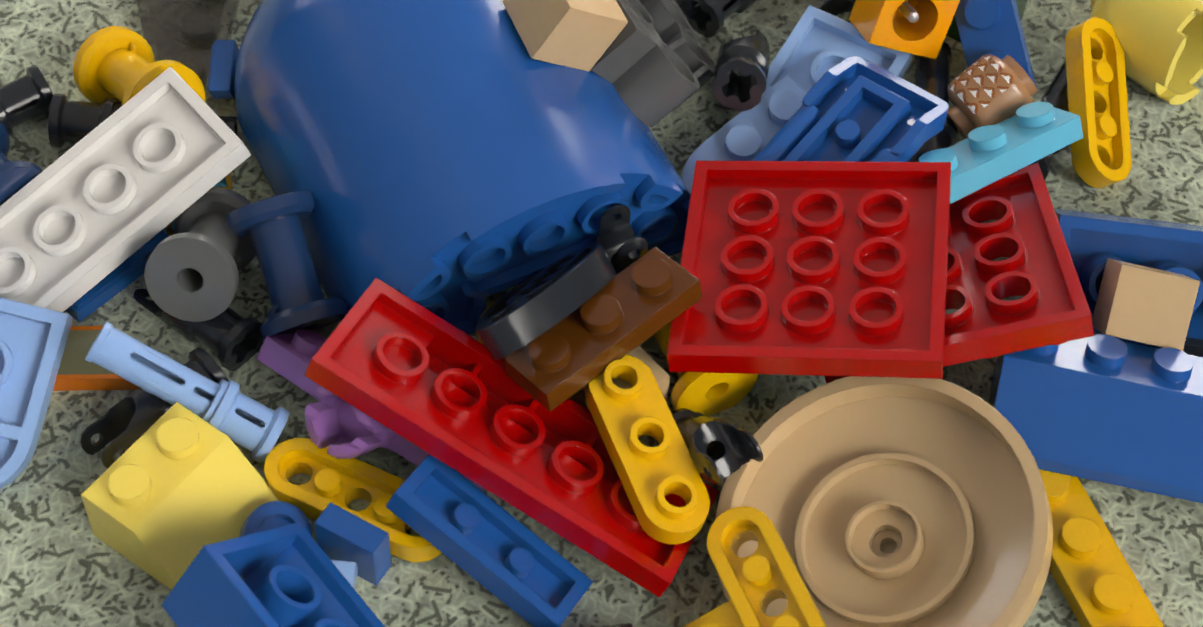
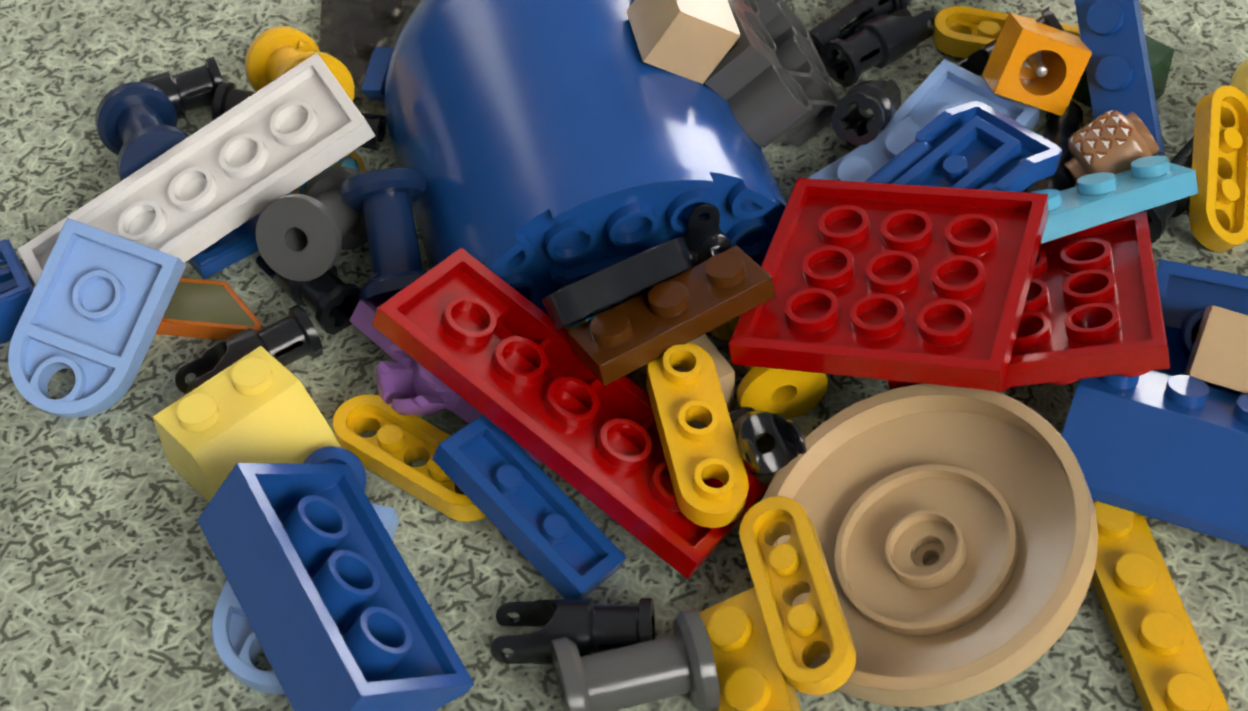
camera: 15 degrees right, 5 degrees down
(218, 404) = (302, 355): light blue pin -> none
(354, 540) = (402, 489): blue tile -> none

